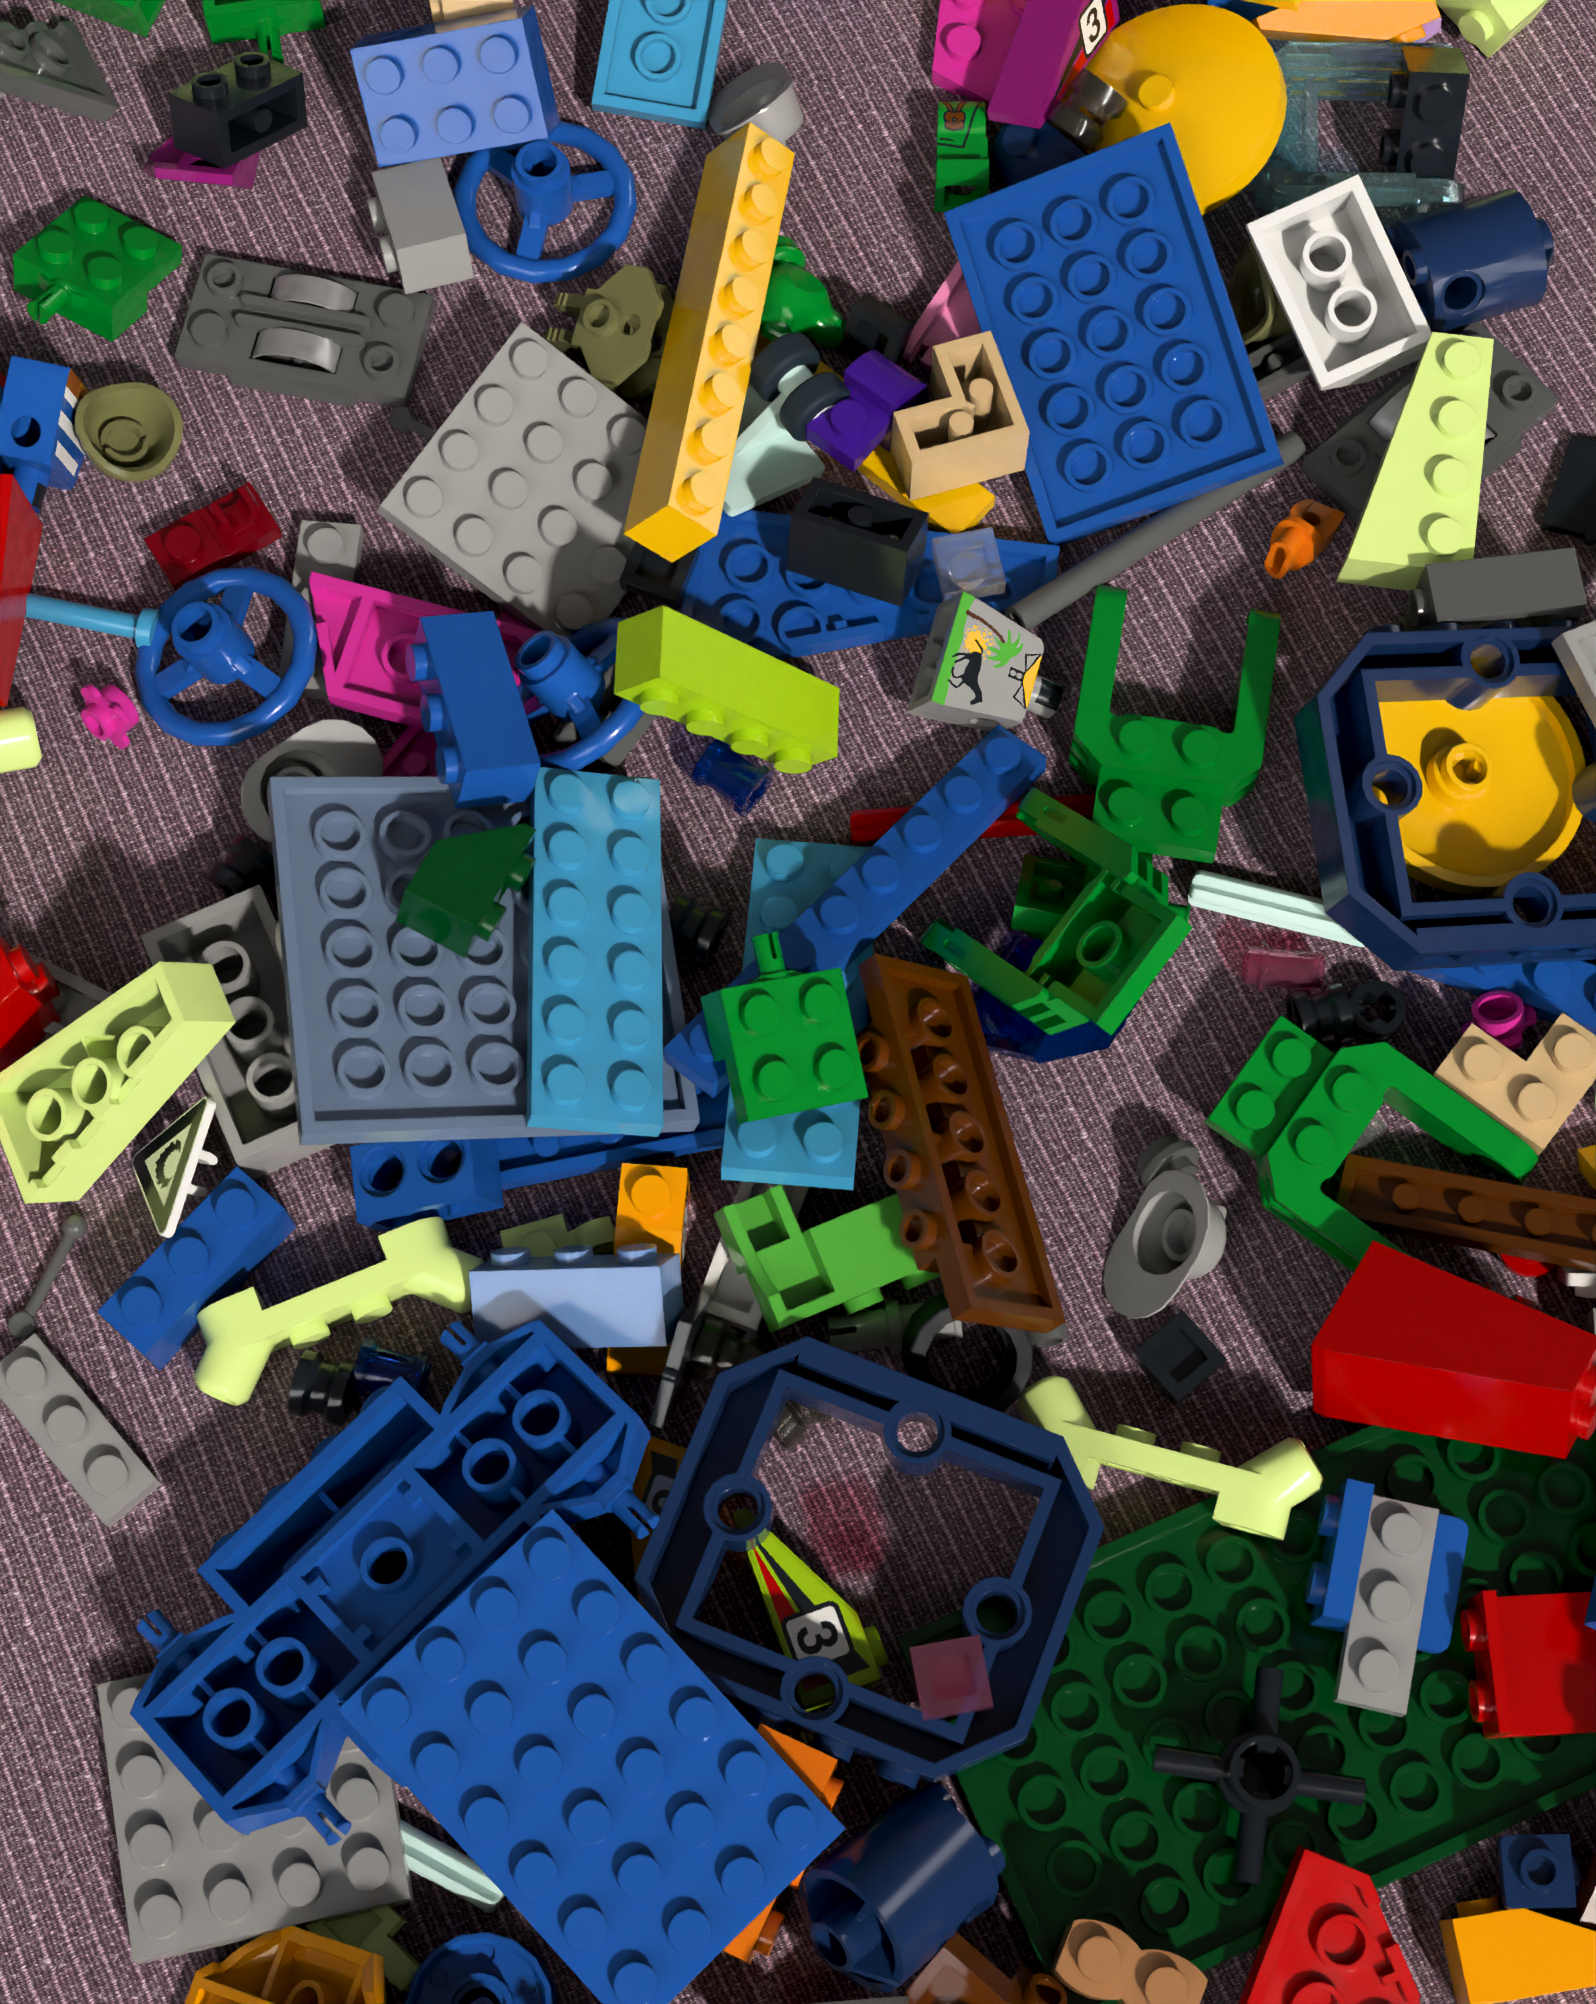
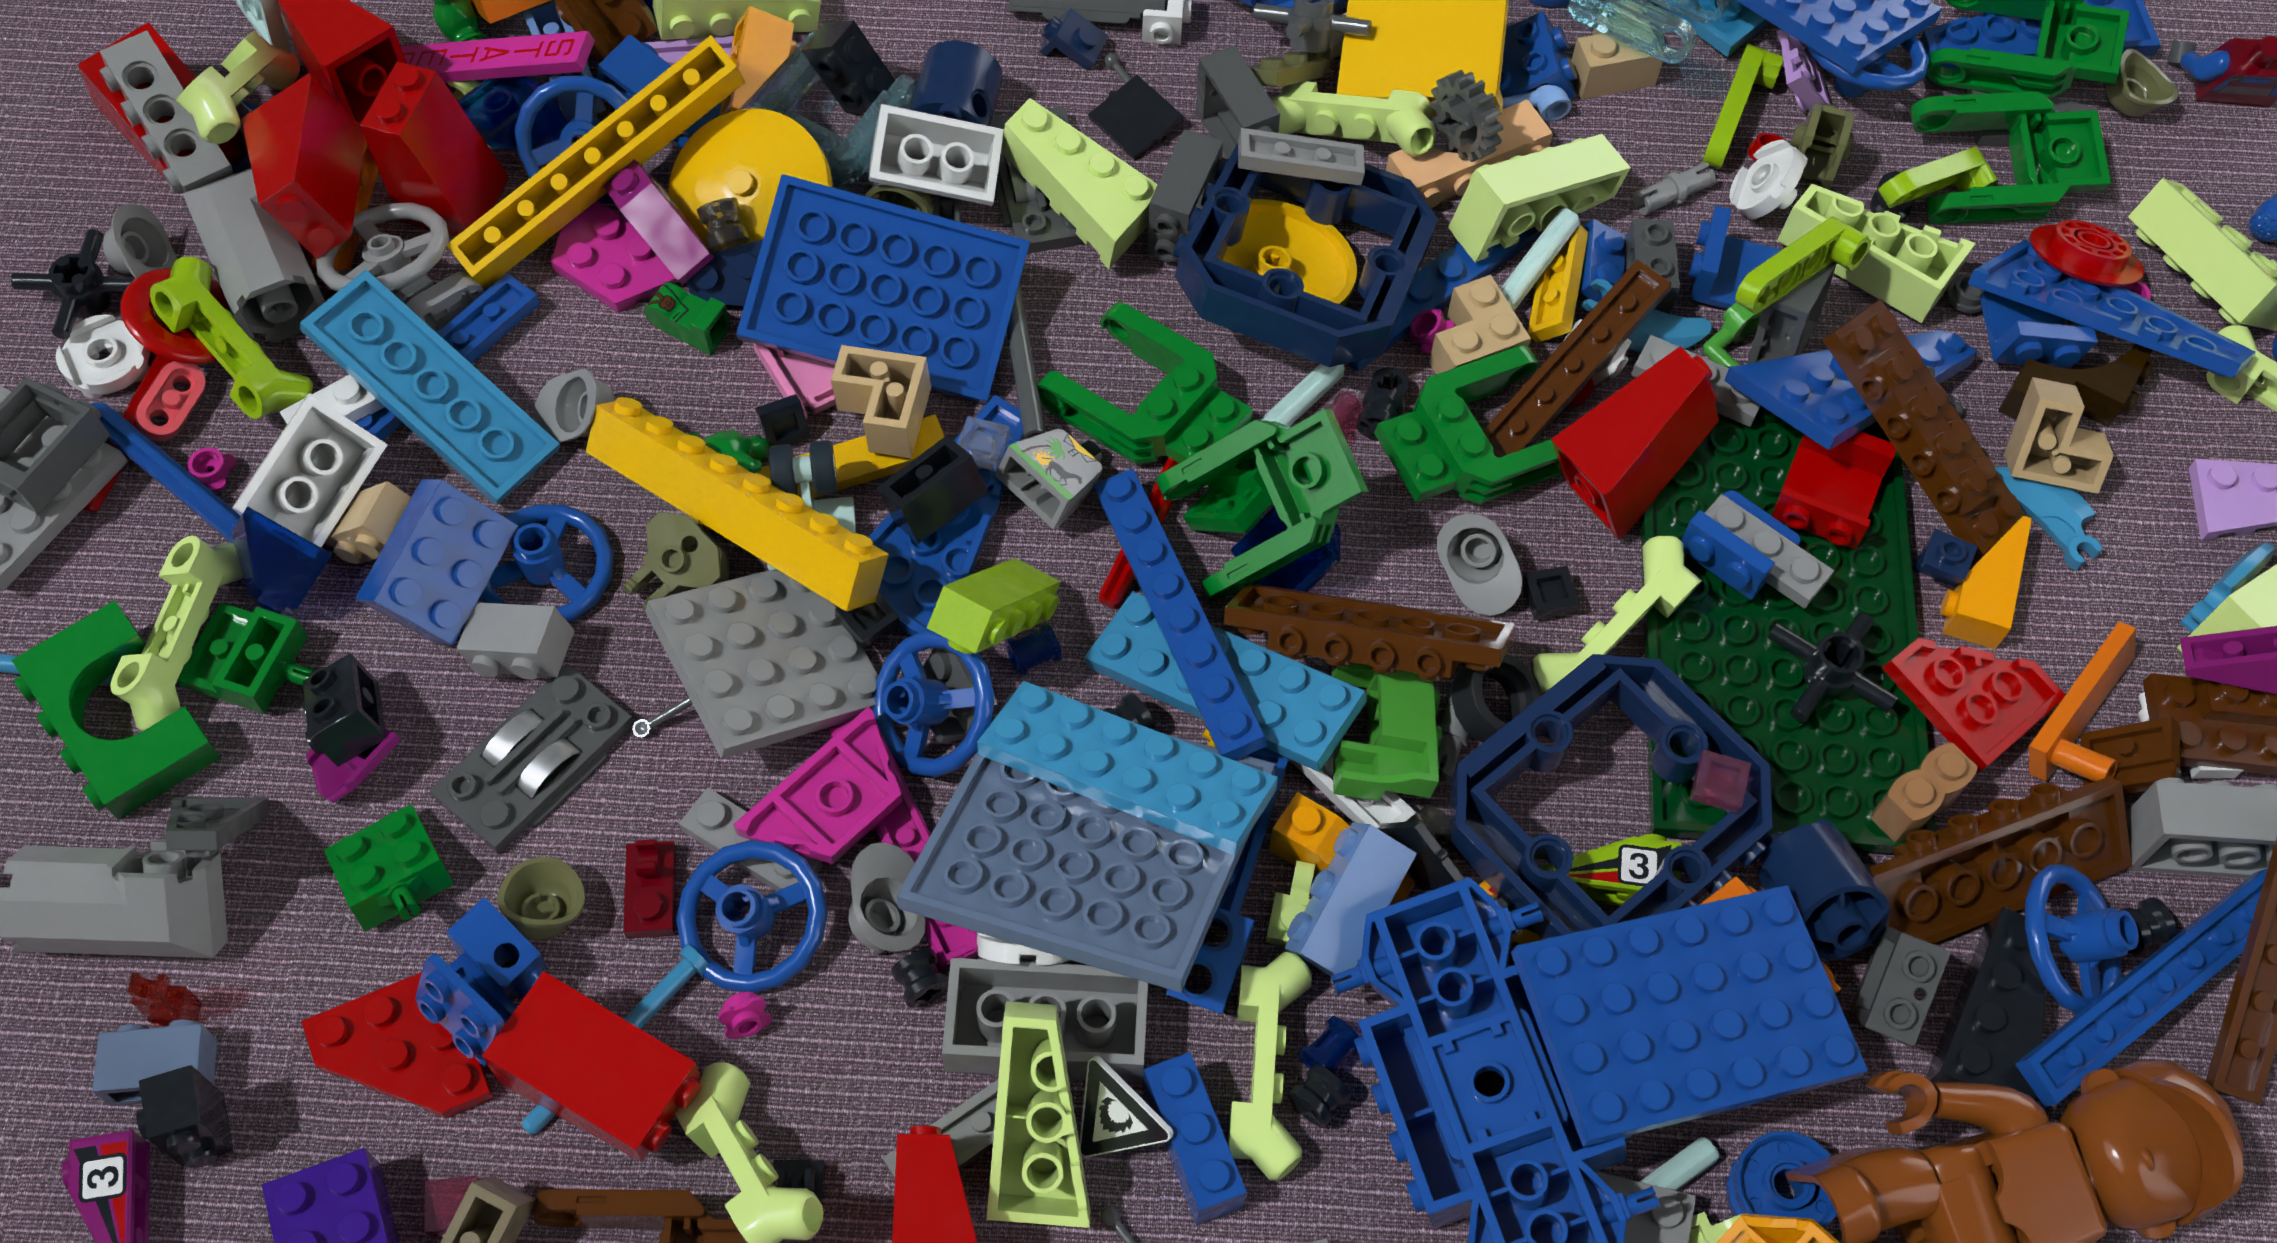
camera: 65 degrees left, 10 degrees down
(461, 885) = (1051, 812): dark green slope -> none
(473, 709) = (915, 756): blue brick -> none
(785, 1038) = (1260, 677): green plate -> none
(866, 417) = (851, 447): dark purple brick -> none
(1165, 1155) = (1426, 536): dark grey plate -> none
(1301, 537) = (1067, 272): orange piece -> none

